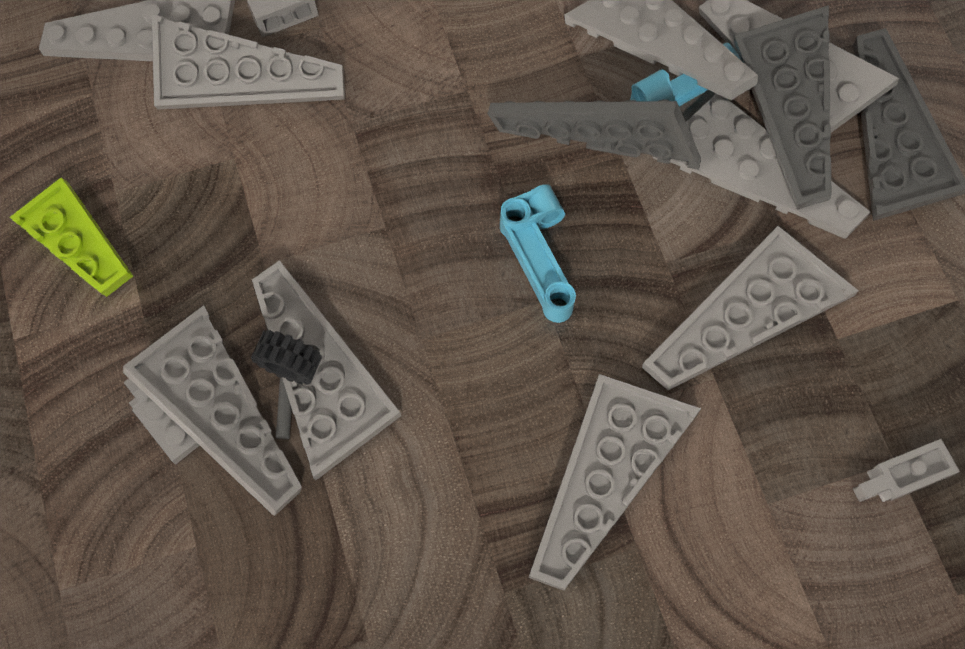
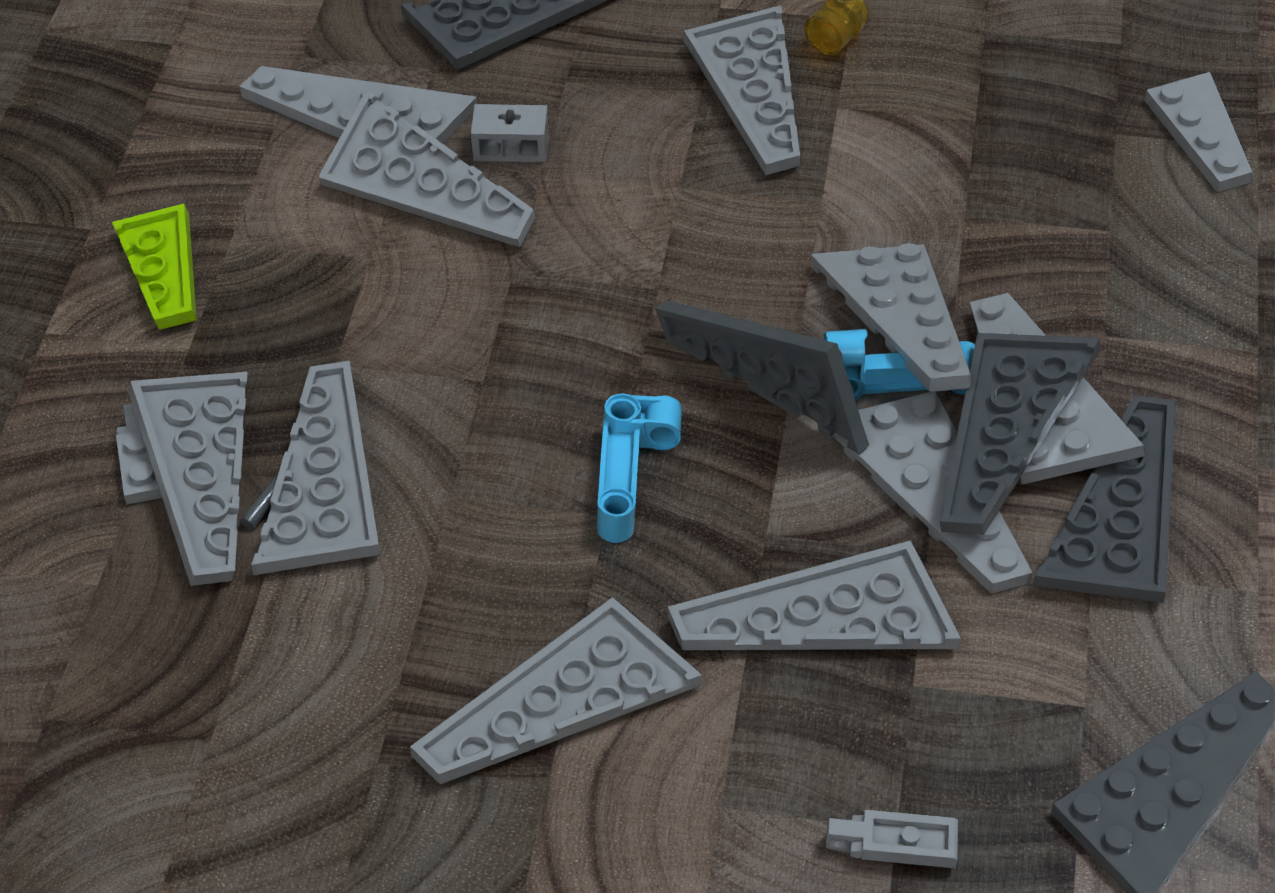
camera: 25 degrees right, 20 degrees down
(286, 357) = (292, 436): black tyre -> none

